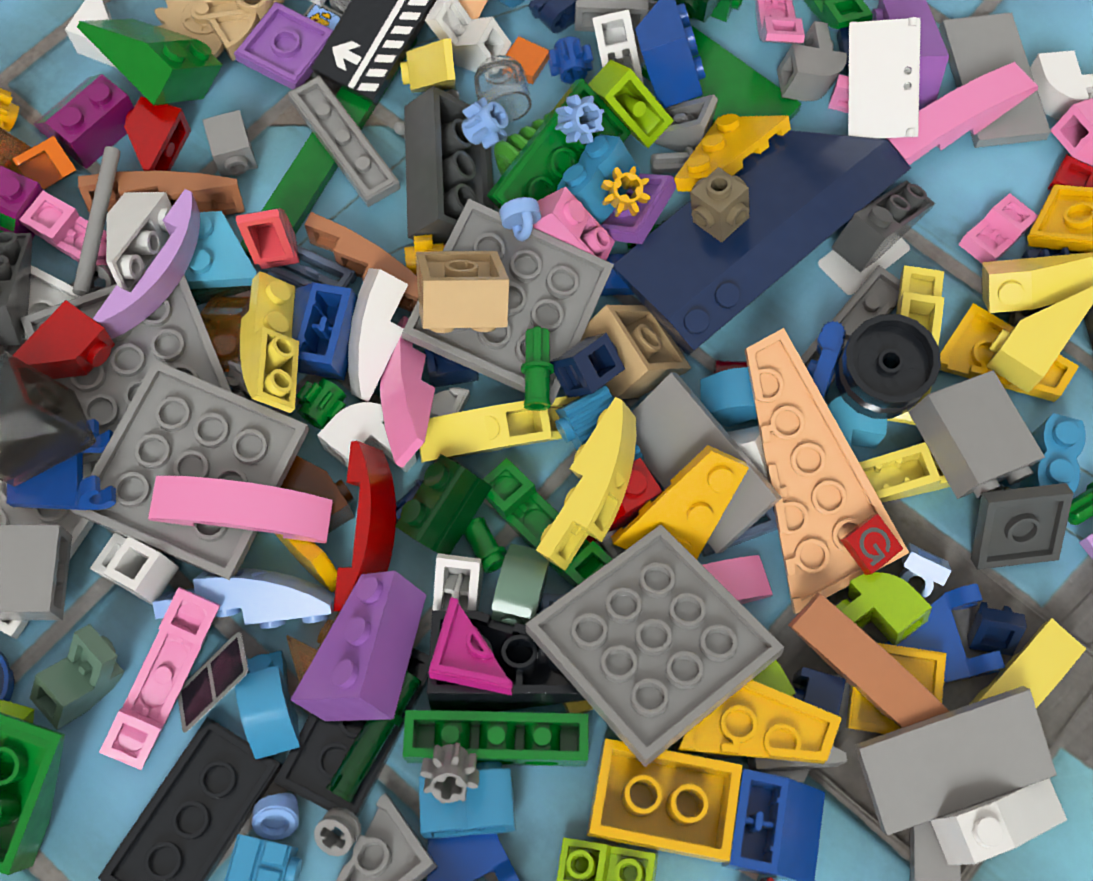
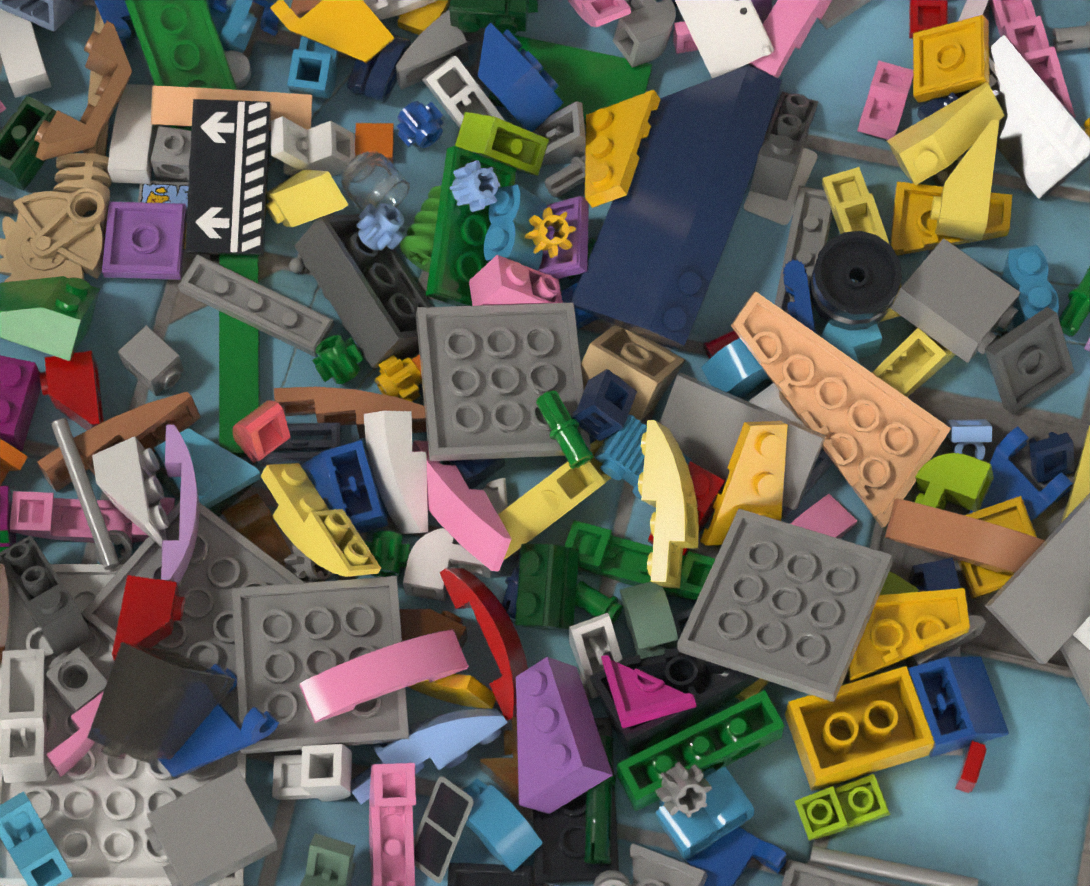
camera: 25 degrees left, 0 degrees up
(383, 217) = (337, 359): none -> green gear
(462, 290) = (464, 392): tan slope -> none
(520, 216) = (473, 300): light blue tile -> none
(720, 203) = (642, 205): dark tan brick -> none
(871, 544) = (917, 437): red tile -> none

